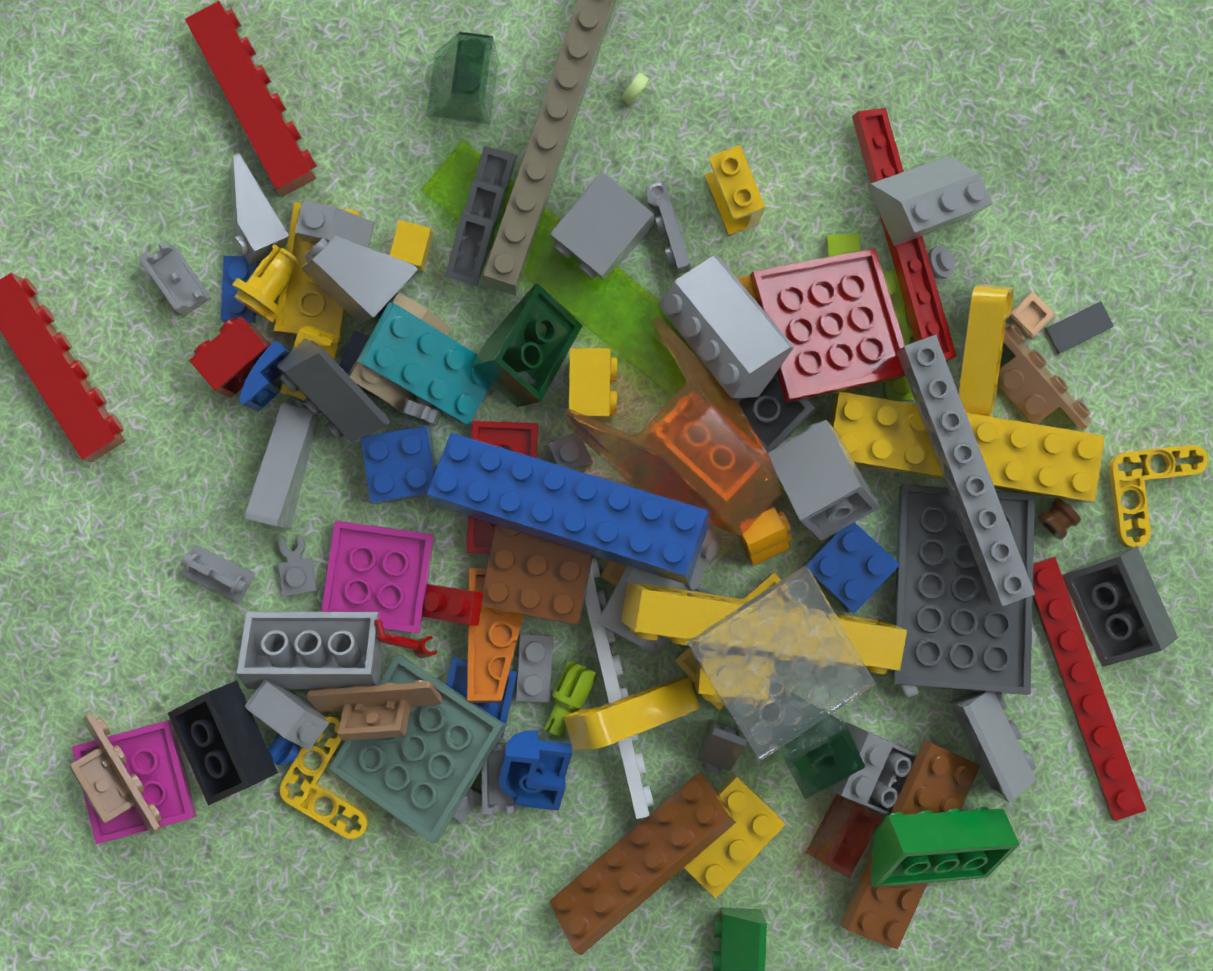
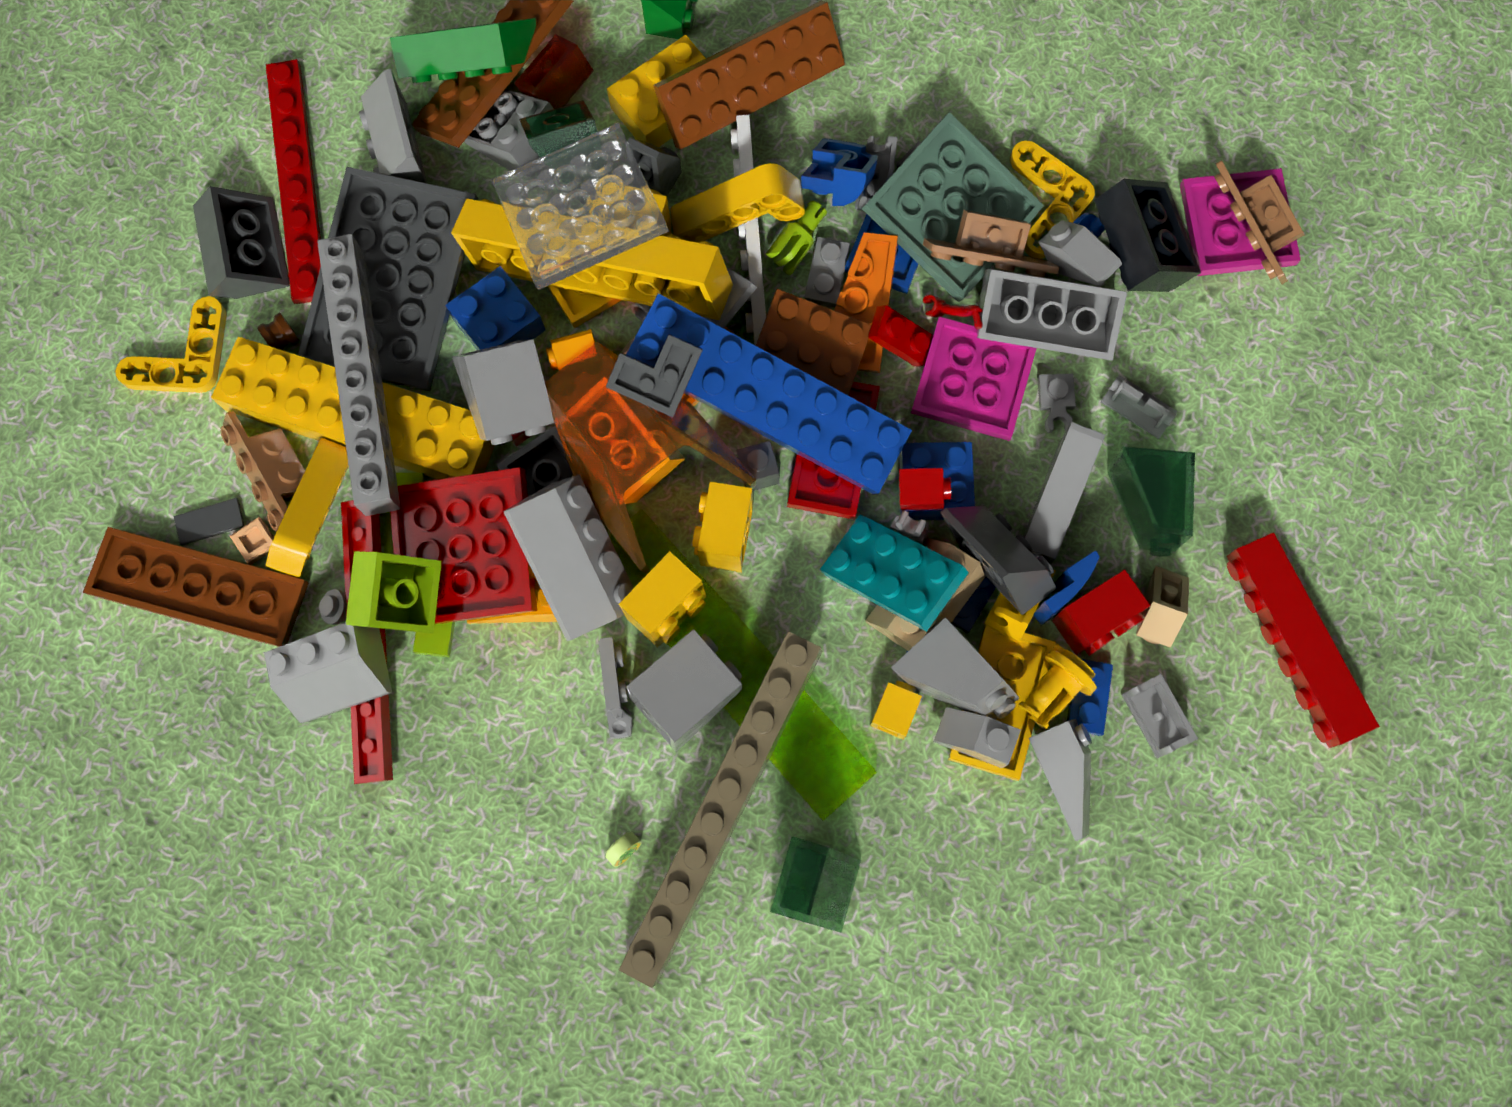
camera: 175 degrees left, 10 degrees down
(176, 381) = (1168, 607): none -> tan slope
(191, 475) = (1156, 496): none -> clear green slope
(250, 98) = (1057, 910): red brick -> none
(408, 438) = (923, 488): none -> red brick
(480, 215) = (814, 728): dark grey slope -> none
(528, 348) = (785, 578): dark green slope -> none
(634, 300) = (664, 600): none -> yellow brick
(671, 482) = (660, 385): none -> dark grey plate
(734, 190) = (535, 707): yellow panel -> none
(882, 262) = (393, 592): none -> lime brick
(1074, 261) = (196, 587): none -> dark orange plate

